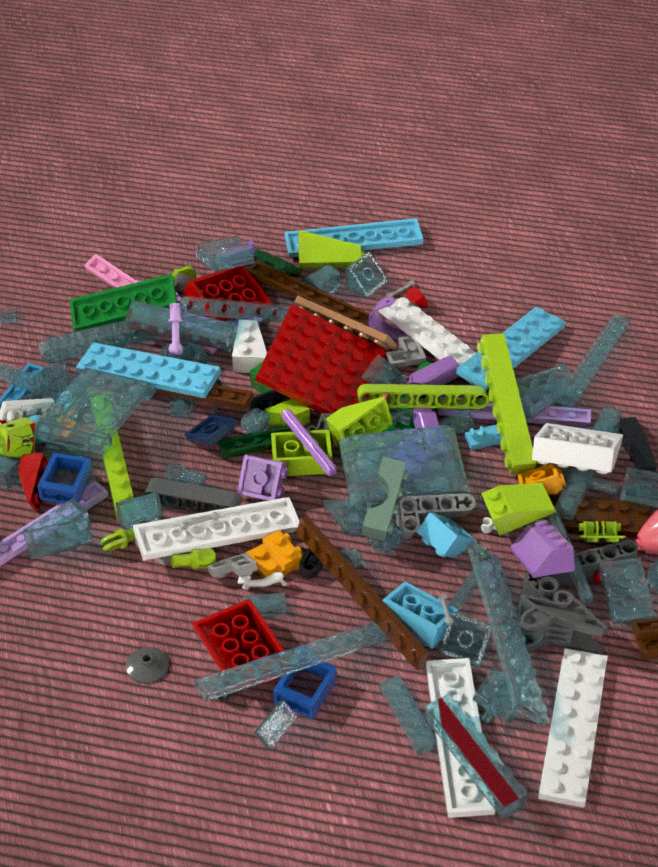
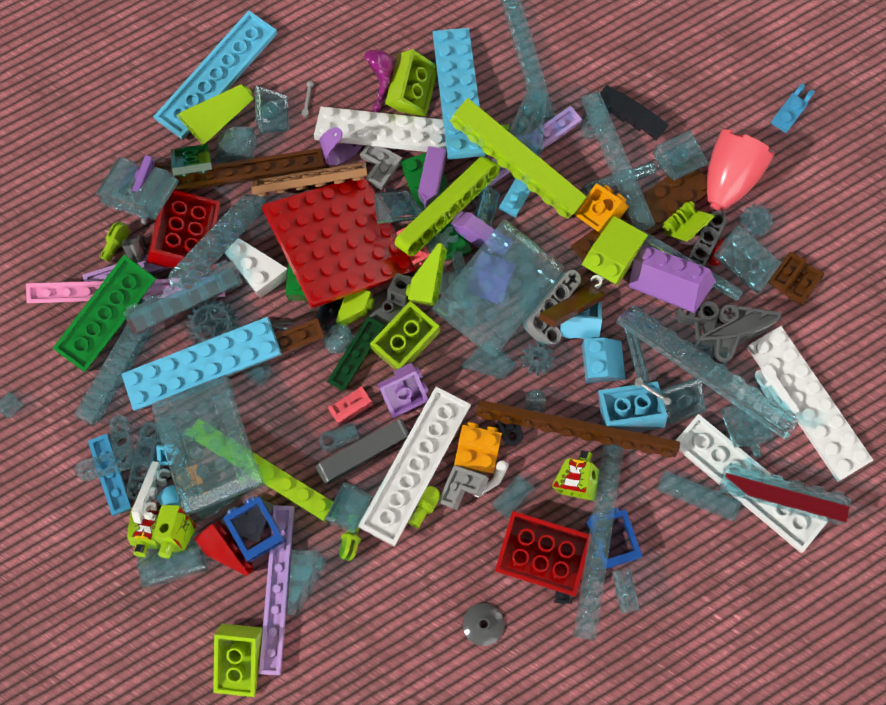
camera: 40 degrees left, 30 degrees up
(175, 347) = (202, 323): lavender pin -> none
(184, 525) = (406, 459): light grey hinge -> none
(211, 430) = (311, 376): dark blue plate -> none
(217, 470) = (350, 406): none -> coral hinge
(309, 442) = (410, 328): medium lavender axle -> none
(324, 622) = (578, 477): none -> lime torso
(378, 519) = (536, 356): sand green arch -> none
(416, 297) = (332, 99): red slope -> none
(433, 570) = (603, 360): none -> medium azure slope
(445, 515) = (572, 306): none -> reddish brown tile
(472, 300) = (381, 65): none -> magenta hair
(488, 319) = (412, 83): none -> lime slope
(552, 690) = (774, 389): none -> white hinge
(576, 448) = (608, 158): white slope -> none

